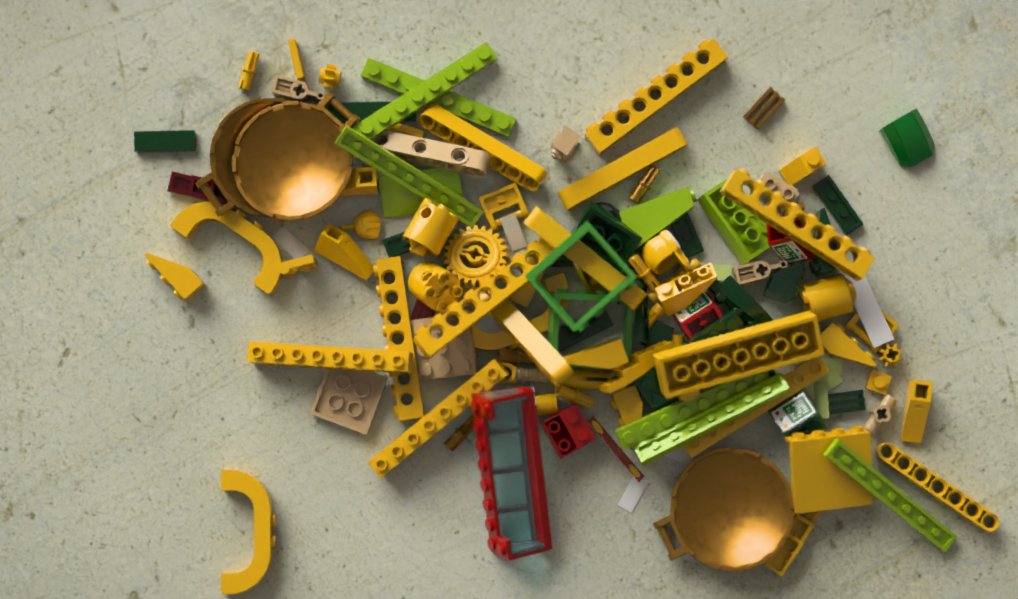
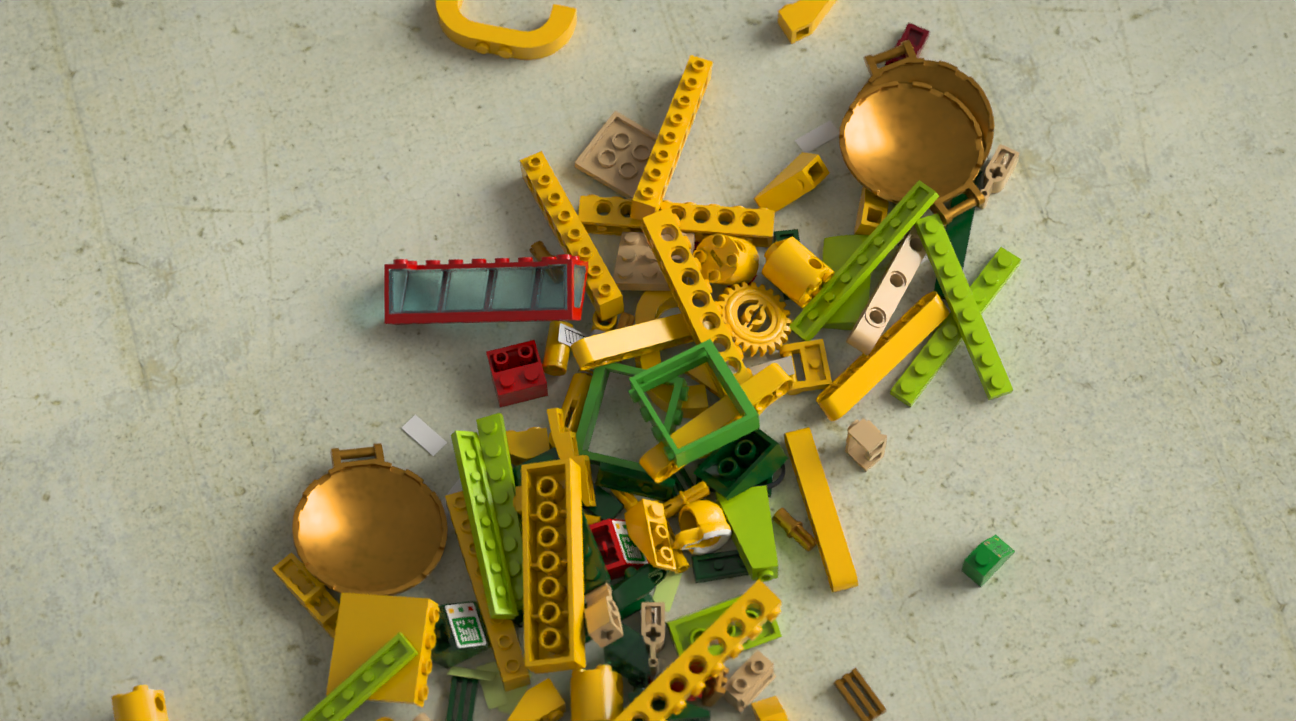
camera: 105 degrees right, 20 degrees down
(165, 141) = (967, 34): dark green tile -> none
(197, 214) = (815, 109): yellow arch -> none
(249, 71) = (1031, 132): yellow axle -> none
(296, 58) = (1033, 182): yellow tile -> none
(304, 264) = (787, 128): yellow plate -> none
(330, 76) = (1005, 212): yellow gear -> none
(365, 225) = (820, 215): yellow piece -> none
(403, 129) = (921, 283): yellow piece -> none
(568, 338) = (635, 428): dark green tile -> none
(574, 396) = (556, 389): yellow axle -> none
(603, 355) = (593, 415): yellow slope -> none
(615, 449) = (508, 408): sticker -> none
(632, 34) = (986, 559): none -> green slope
(715, 57) = (936, 649): yellow brick -> none
(765, 307) = (602, 616): none -> tan piece

